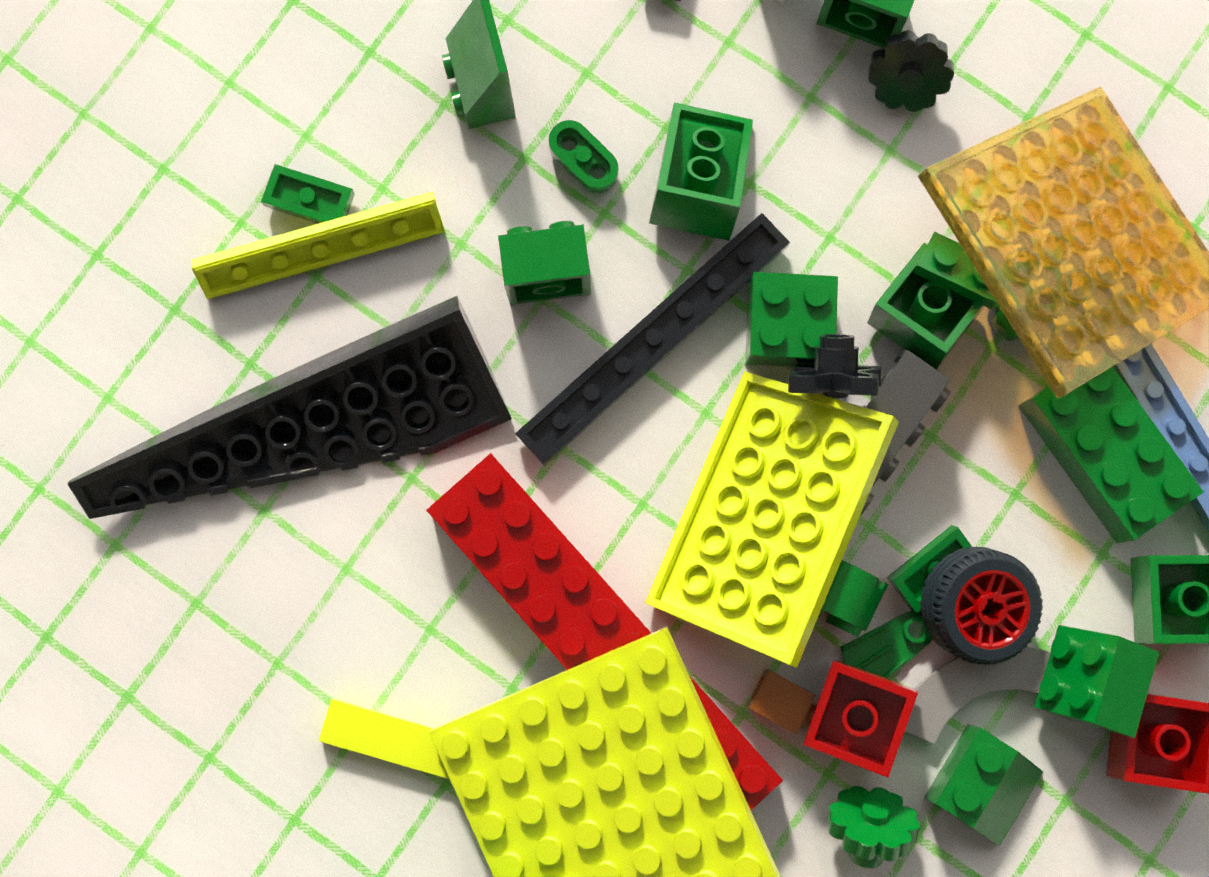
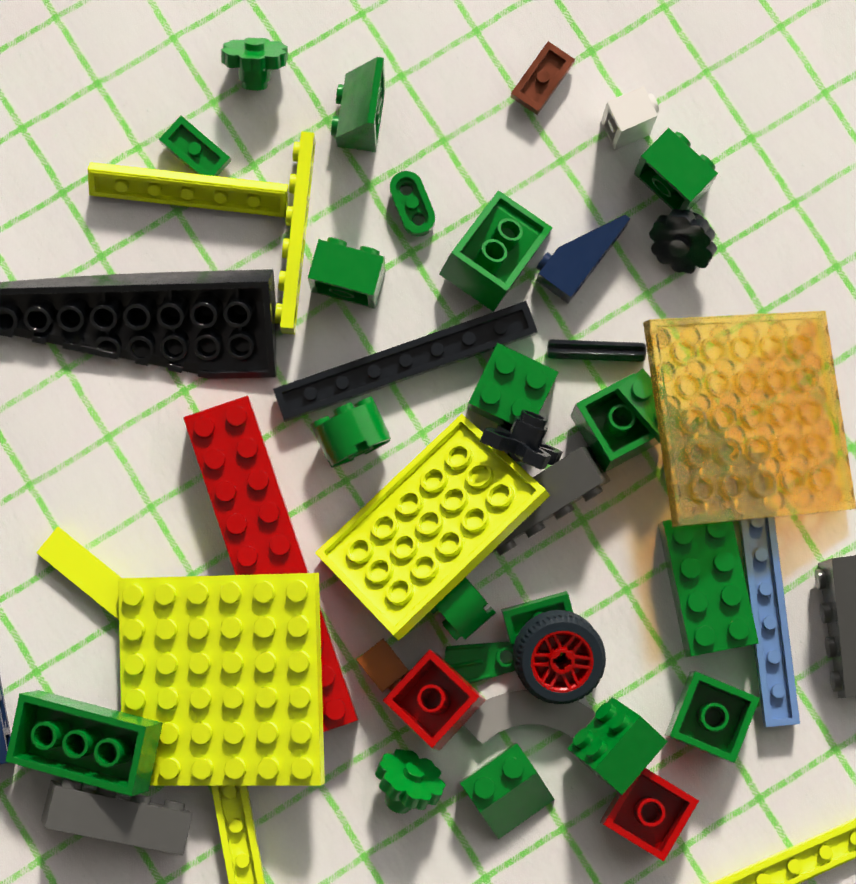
camera: 20 degrees right, 0 degrees up
(334, 67) = (254, 60): none -> green plant
(469, 260) = (294, 247): none -> neon yellow plate
(628, 444) = (351, 432): none -> green brick
(797, 146) = (576, 260): none -> dark blue slope
(864, 236) = (596, 350): none -> black axle

